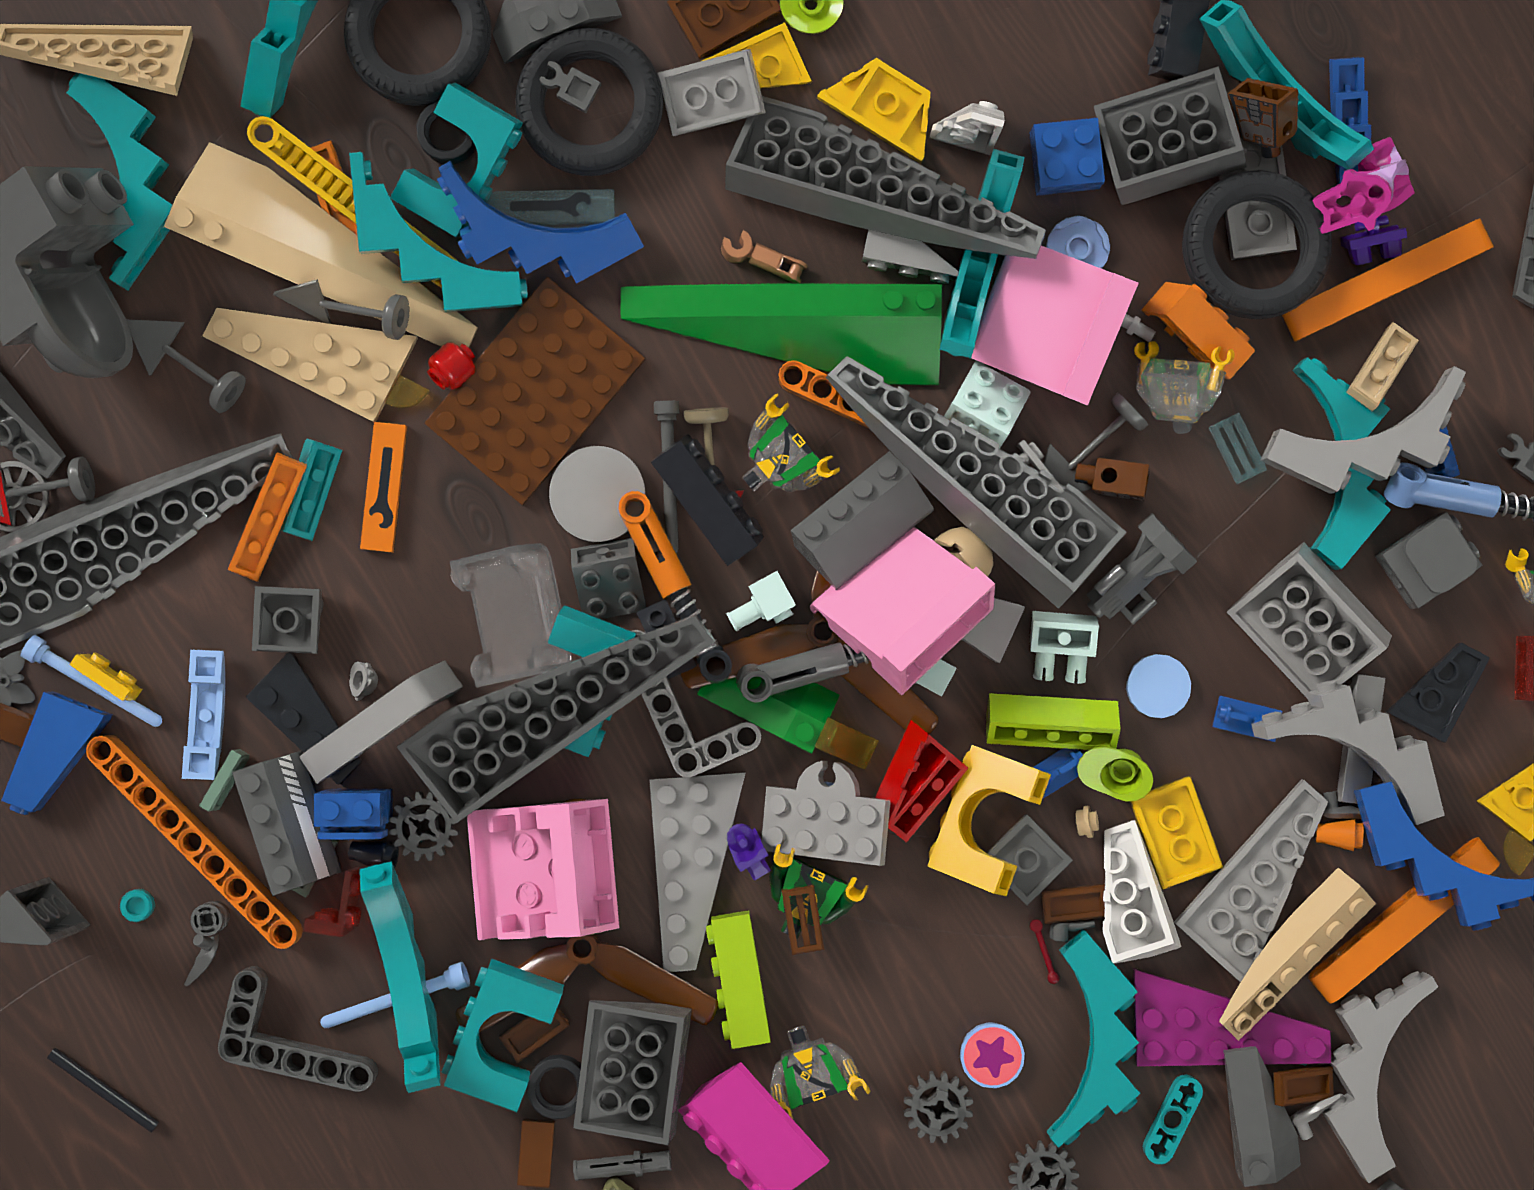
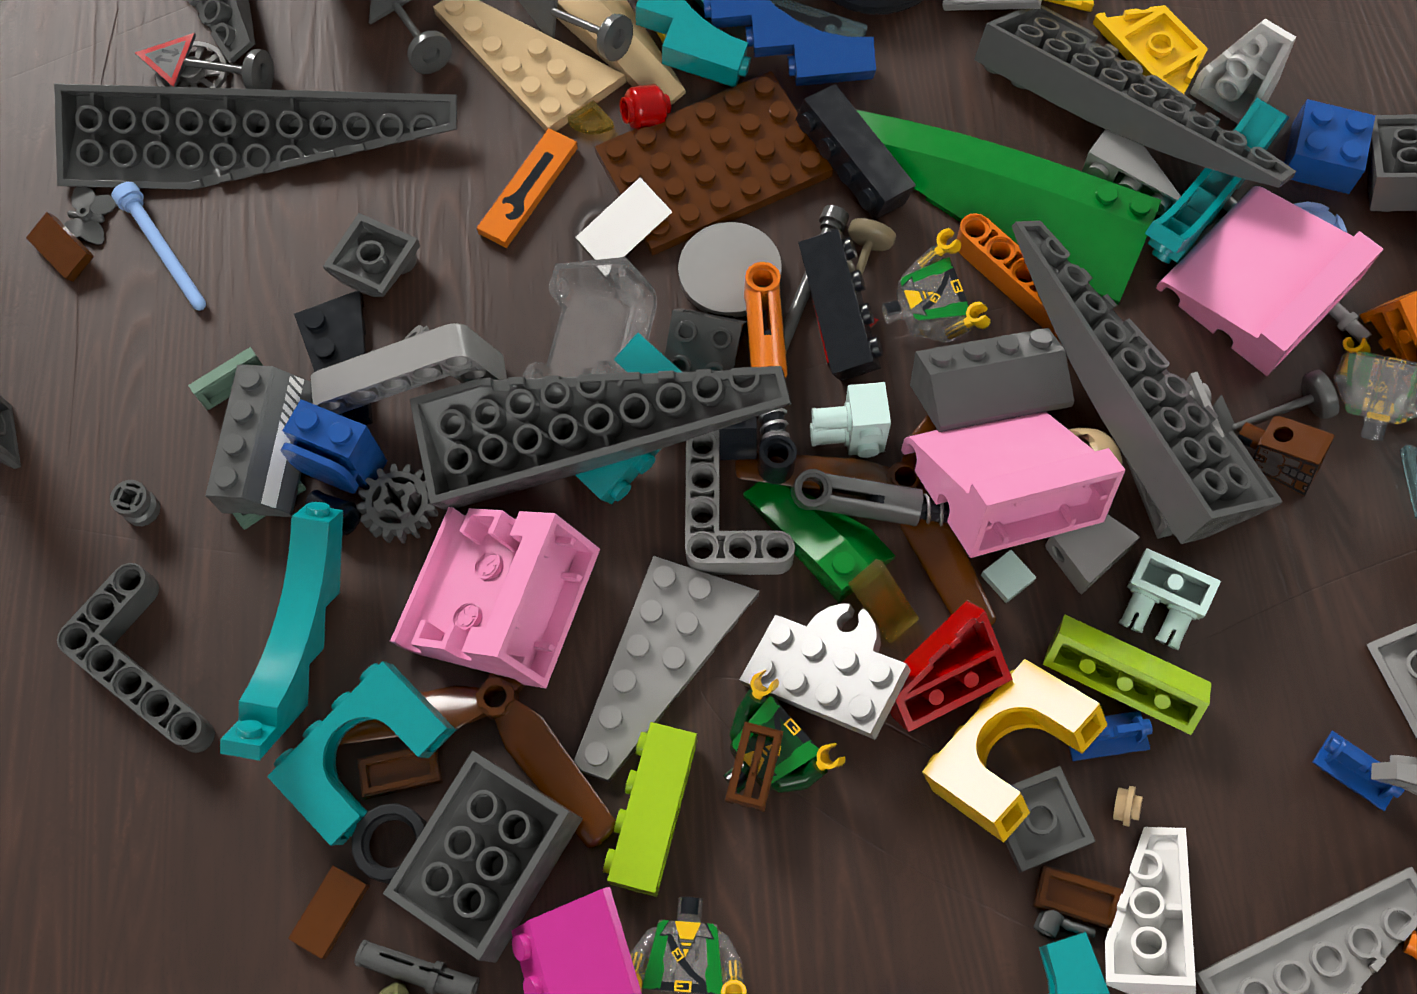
camera: 25 degrees right, 20 degrees down
(51, 750) = (84, 287): blue slope -> none
(98, 670) = (174, 234): yellow plate -> none
(137, 905) = (75, 465): teal tile -> none
(179, 837) = (175, 436): orange beam -> none
(205, 715) = (250, 314): light blue slope -> none
(205, 957) = (108, 542): dark grey bar -> none
(267, 516) = (405, 163): orange tile -> none
(313, 489) = (458, 164): teal slope -> none
(336, 921) = (267, 551): clear red bracket -> none
(455, 977) = (343, 672): light blue piece -> none
(487, 492) = (624, 222): none -> white sticker
(658, 340) = (854, 152): none -> black brick
(748, 850) = (725, 663): dark purple hips -> none
(763, 258) = (981, 124): nougat piece -> none
(988, 402) = (1170, 330): light aqua bracket -> none
(1036, 926) = (1021, 906): dark red hinge -> none
(1115, 773) = (1183, 759): lime piece -> none
(1154, 555) = (1311, 540): dark grey piece -> none
(1158, 686) = (1261, 691): light blue tile -> none
(1176, 833) = (1230, 867): yellow tile -> none

